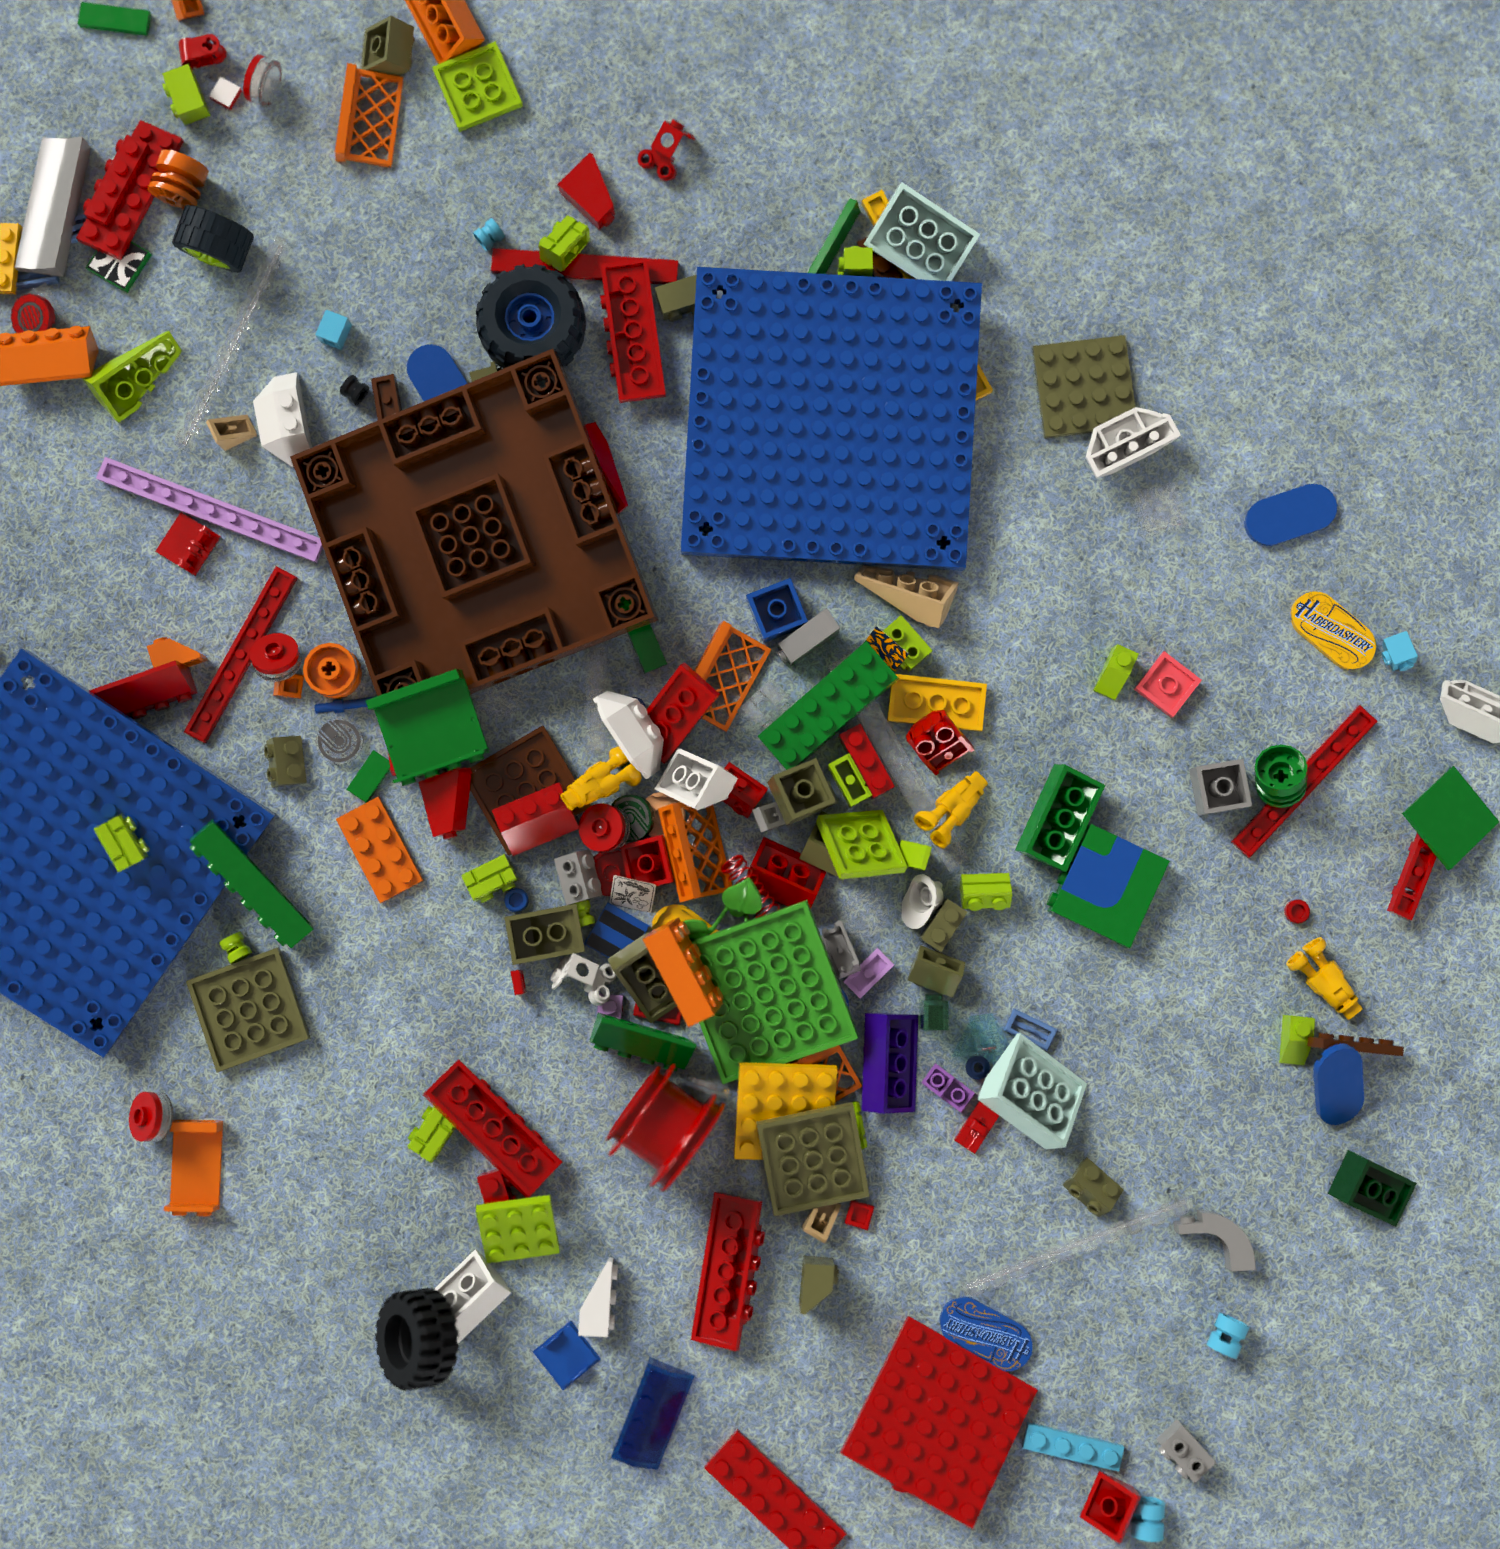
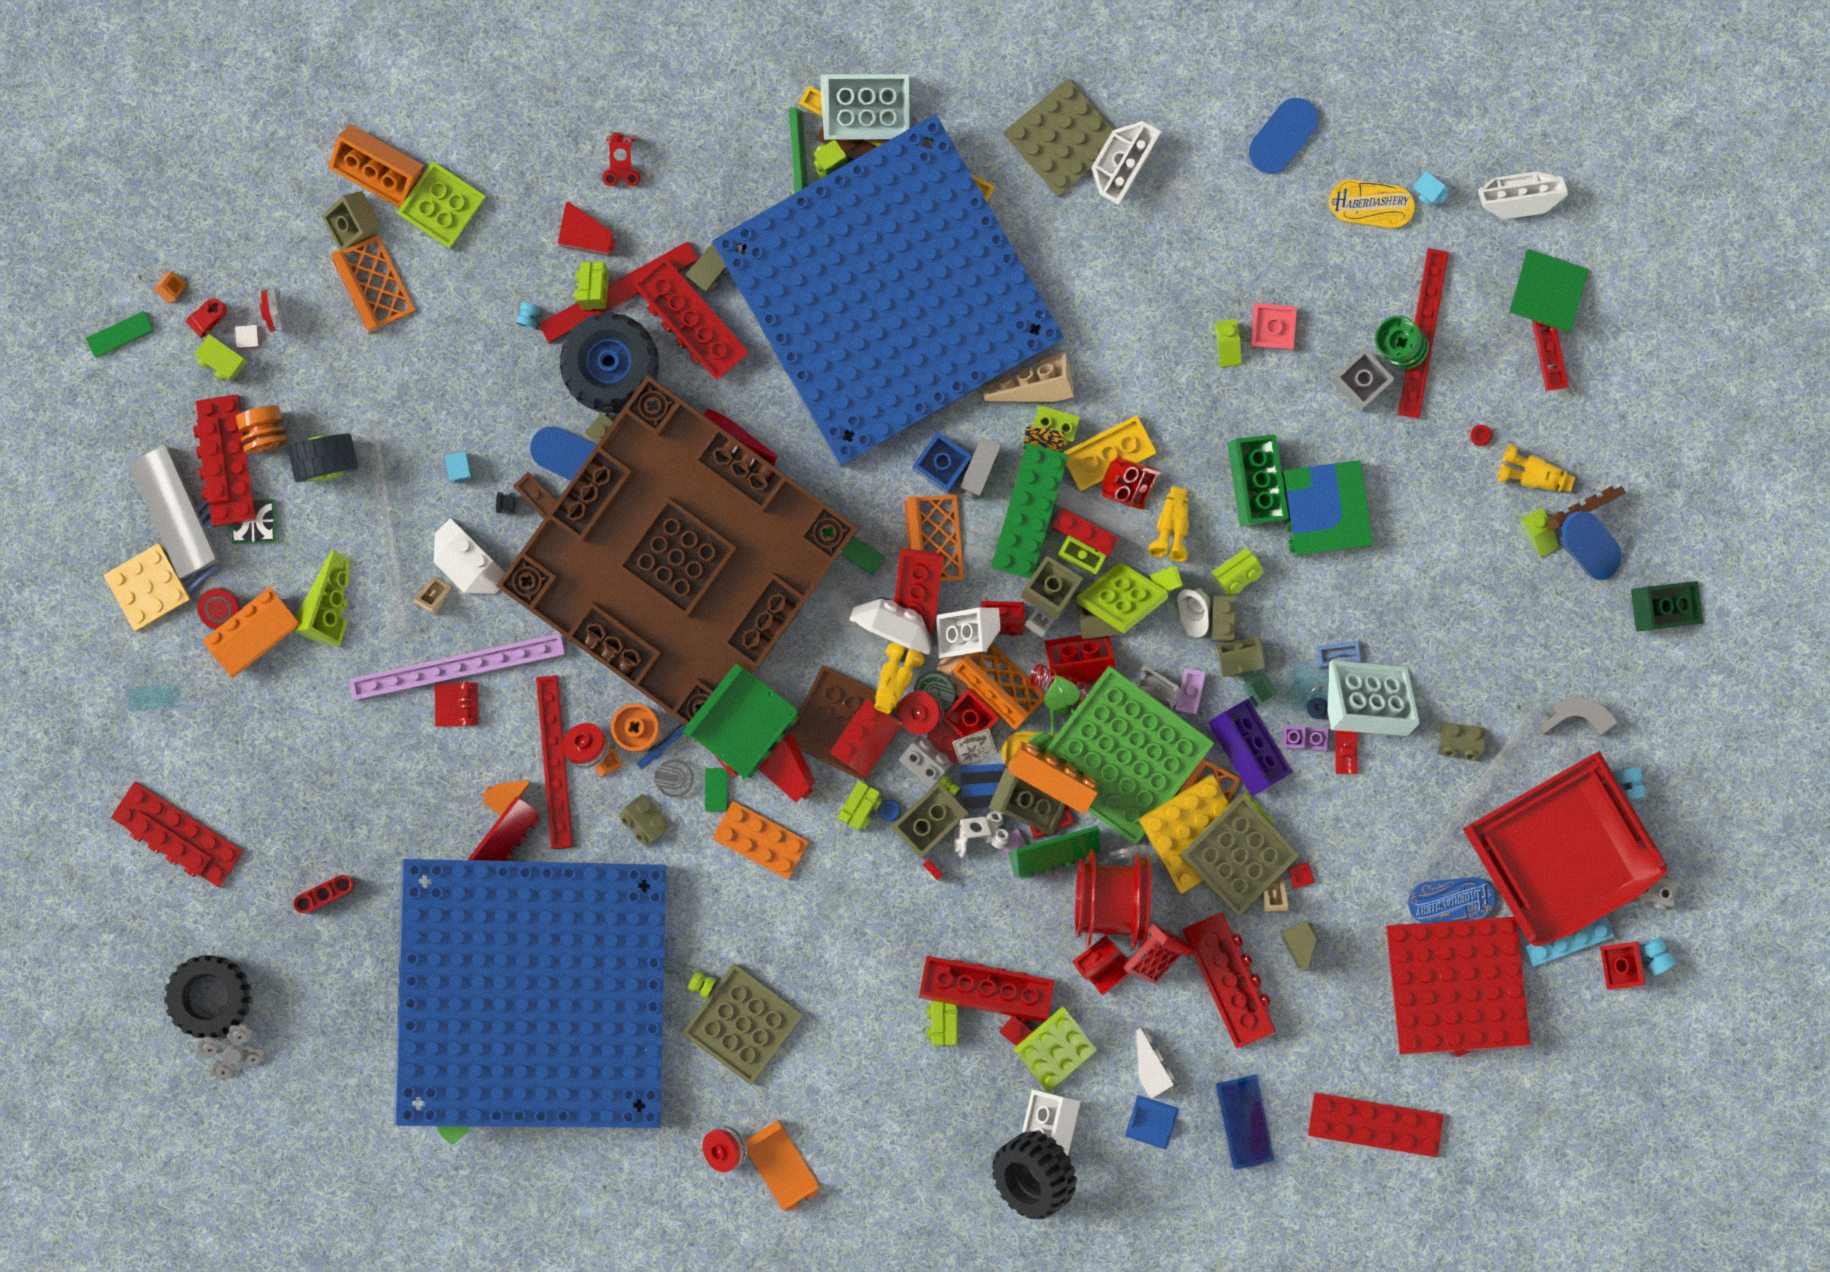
camera: 30 degrees left, 0 degrees up
(121, 842) = (572, 954): lime brick -> none
(251, 883) = (685, 925): green brick -> none
(617, 1179) = (1103, 965): none -> red panel
(673, 1205) = (1157, 954): none -> red fence
(1128, 1363) = (1567, 851): none -> red piece

